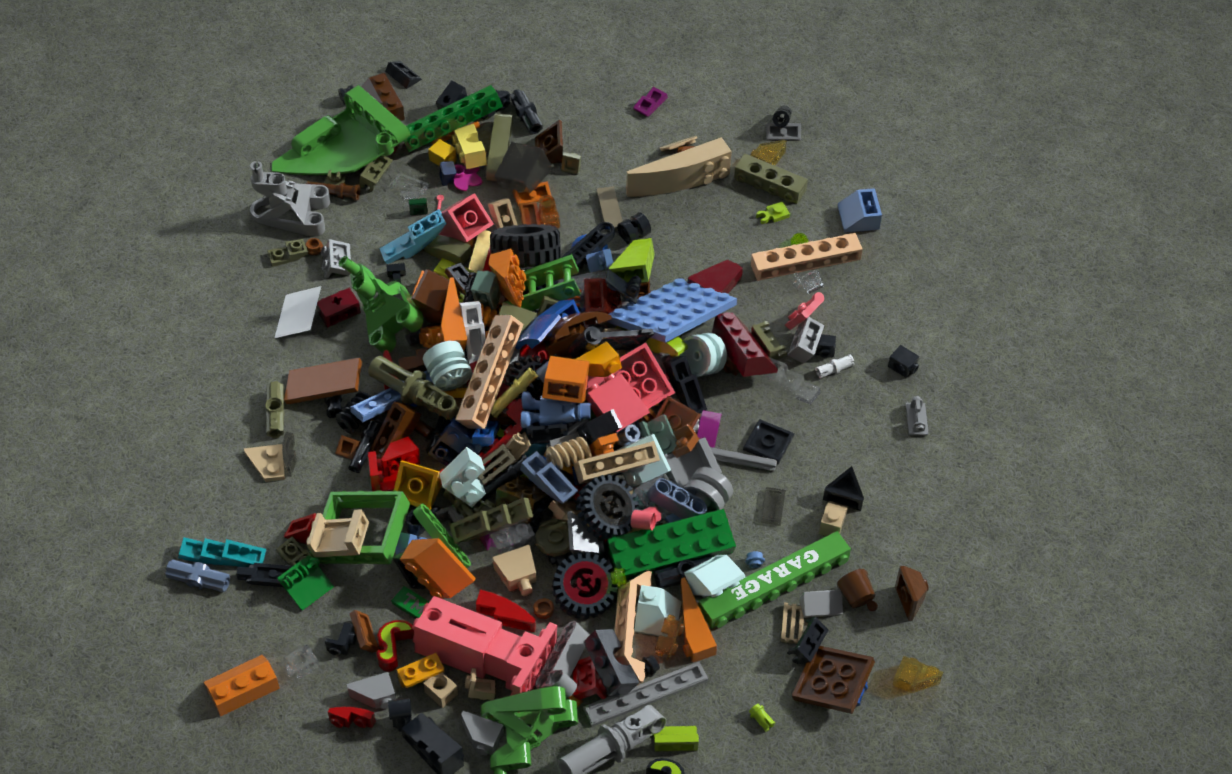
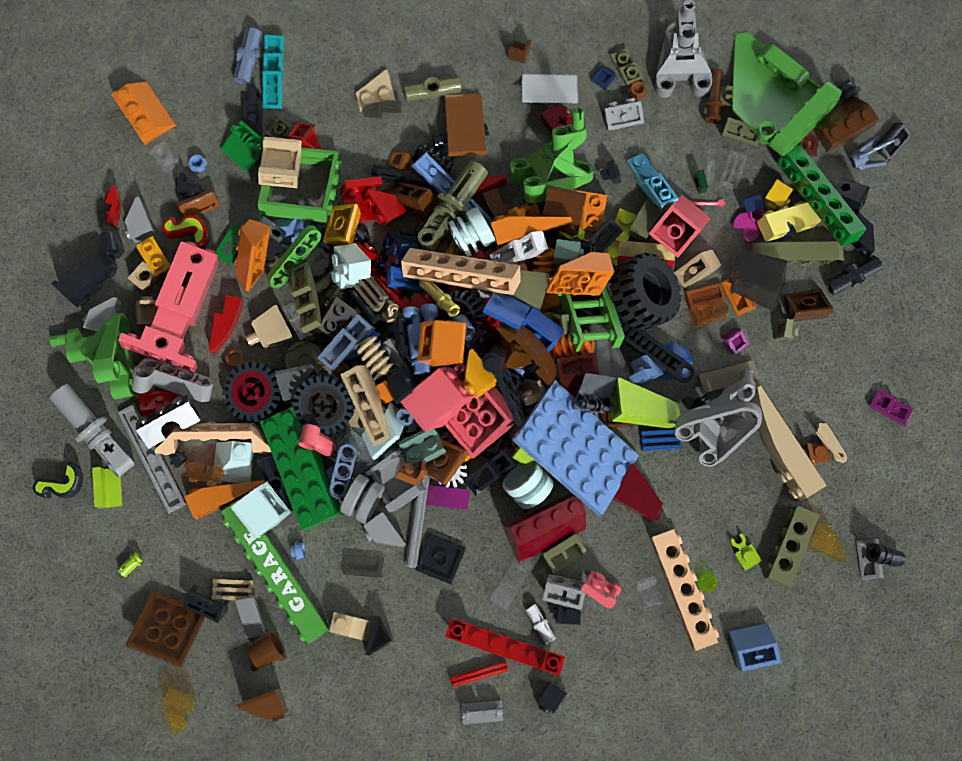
camera: 85 degrees right, 25 degrees up
(252, 332) = (519, 51): none -> reddish brown panel
(294, 272) = (603, 78): none -> dark blue tile
(310, 629) = (197, 159): none -> medium blue plate
(416, 96) = (859, 157): none -> sand blue plant
(574, 200) = (735, 340): none -> magenta slope
(618, 577) = (254, 420): clear neon green plate -> none
(648, 198) = (731, 409): none -> light grey connector
(665, 251) = (656, 440): none -> blue tile
(742, 482) = (382, 532): none -> light grey slope
(858, 389) = (505, 647): none -> red slope
(880, 418) = (479, 673): none -> red axle

